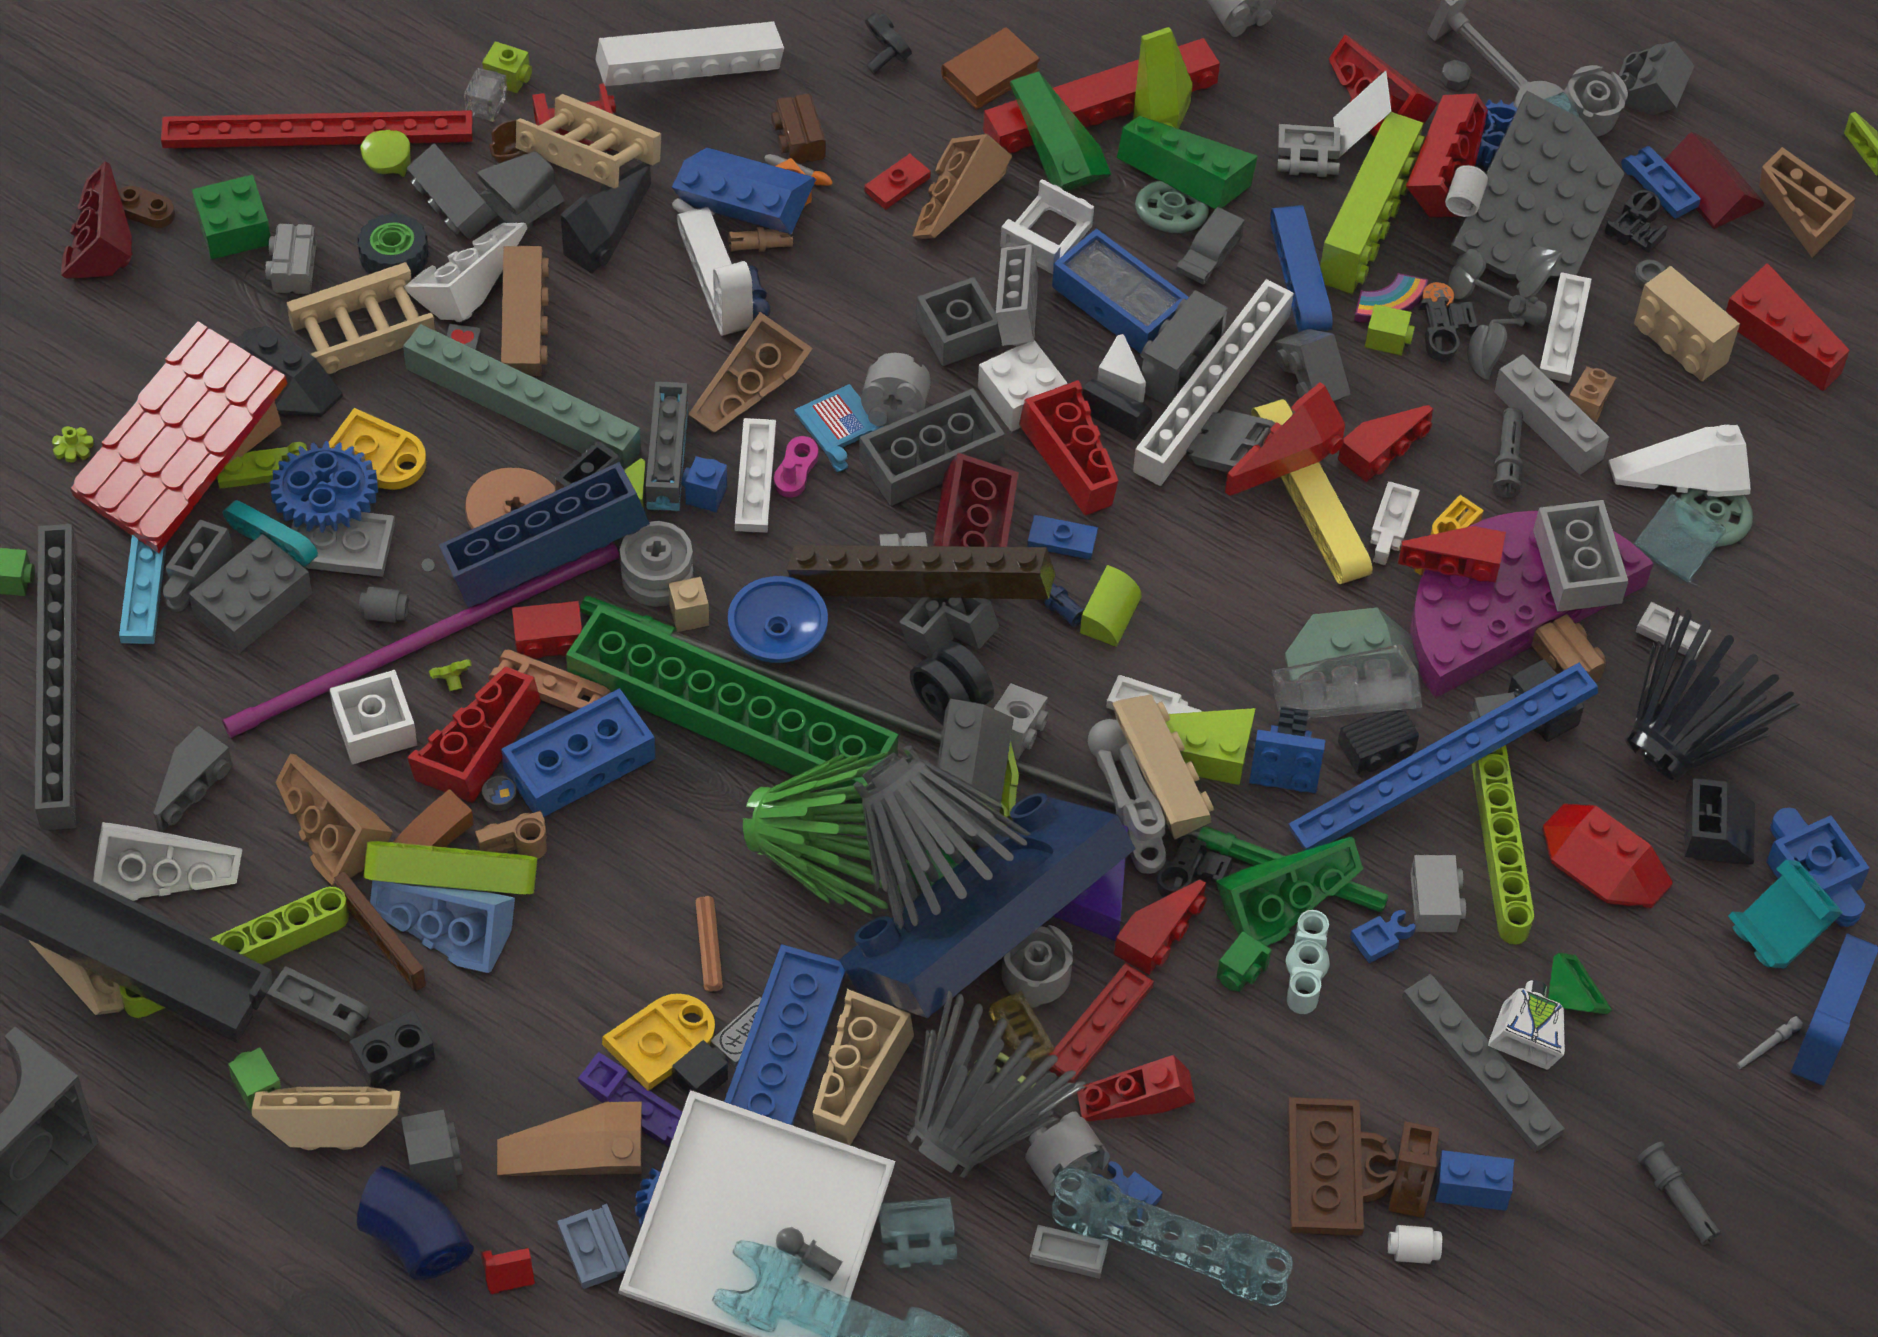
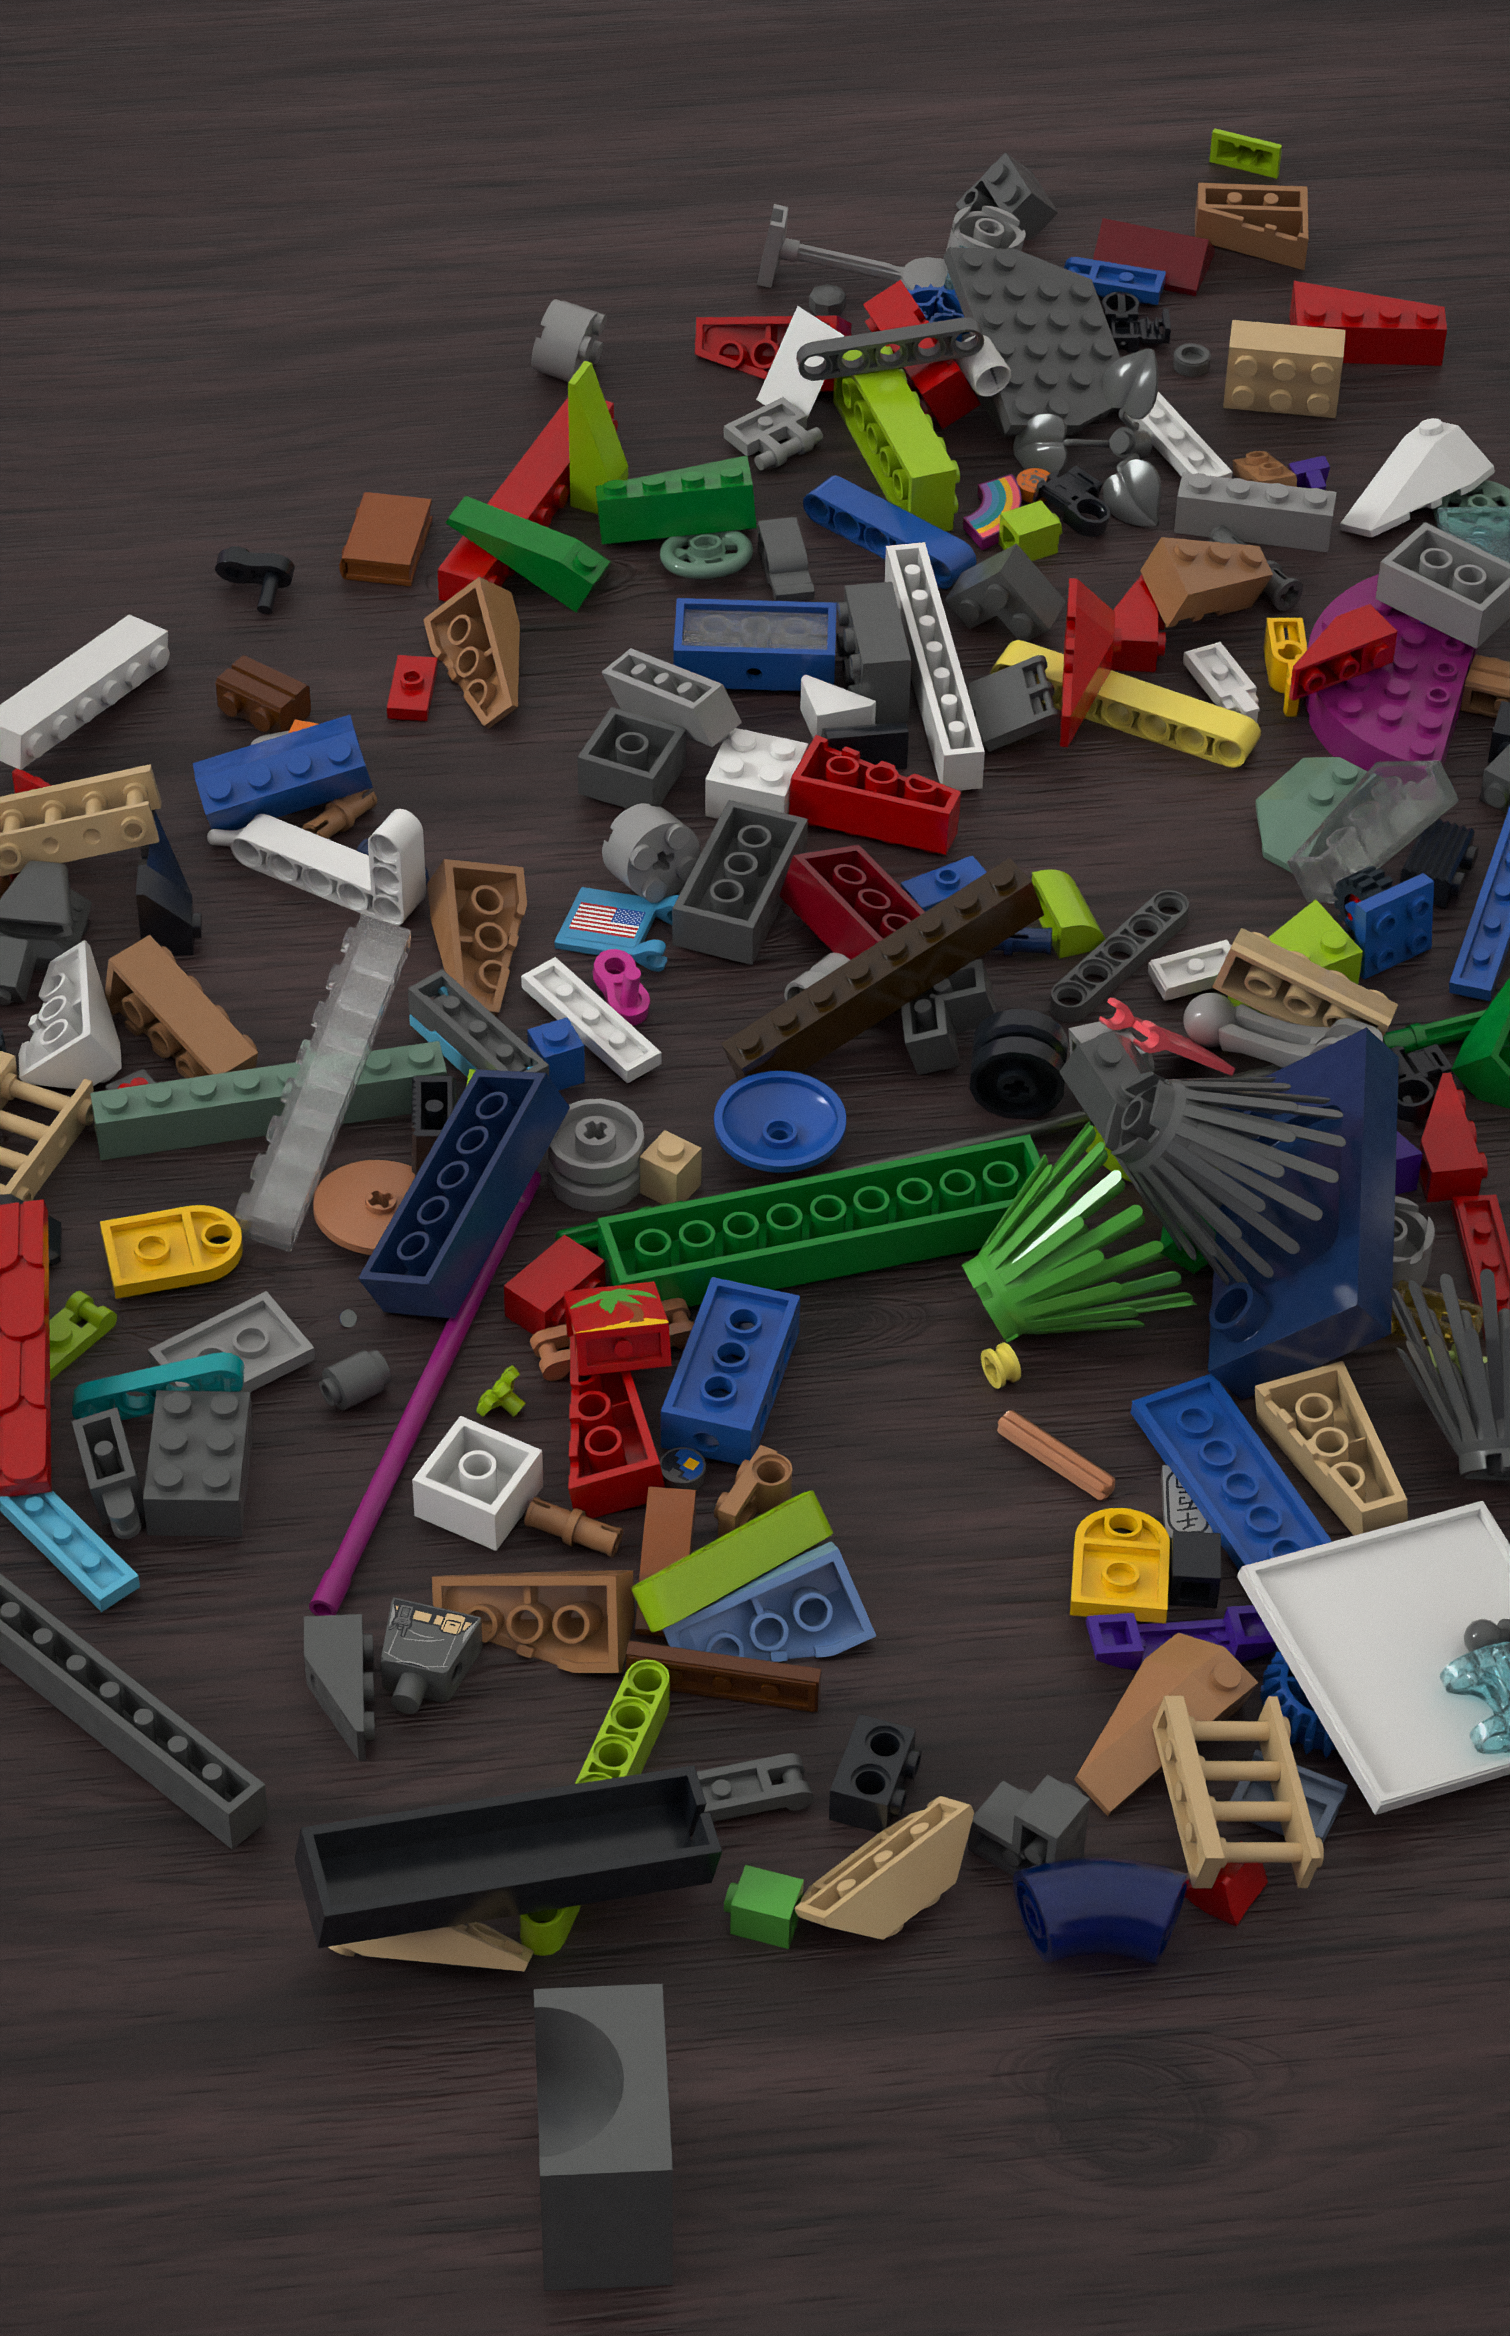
camera: 40 degrees left, 10 degrees down
(158, 863) = (414, 1772): white wedge -> none
(245, 796) = (427, 1652): none -> dark grey torso
(324, 486) = (133, 1303): blue gear -> none
(402, 782) = (573, 1527): none -> medium nougat pin
(526, 677) = (618, 1328): none -> red panel
(536, 1185) = (1198, 1812): none -> tan fence
(539, 409) = (324, 1083): none -> clear brick
(737, 865) = (1000, 1365): none -> light yellow bush
(1054, 735) = (1163, 1039): none -> coral flag
(1063, 203) = (586, 610): white window -> none
(1100, 667) = (1114, 970): none -> dark grey beam
(1417, 141) = (907, 355): none -> dark grey beam
(1448, 439) = (1203, 578): none -> medium nougat wedge
(1616, 414) = (1311, 472): none -> dark purple tile

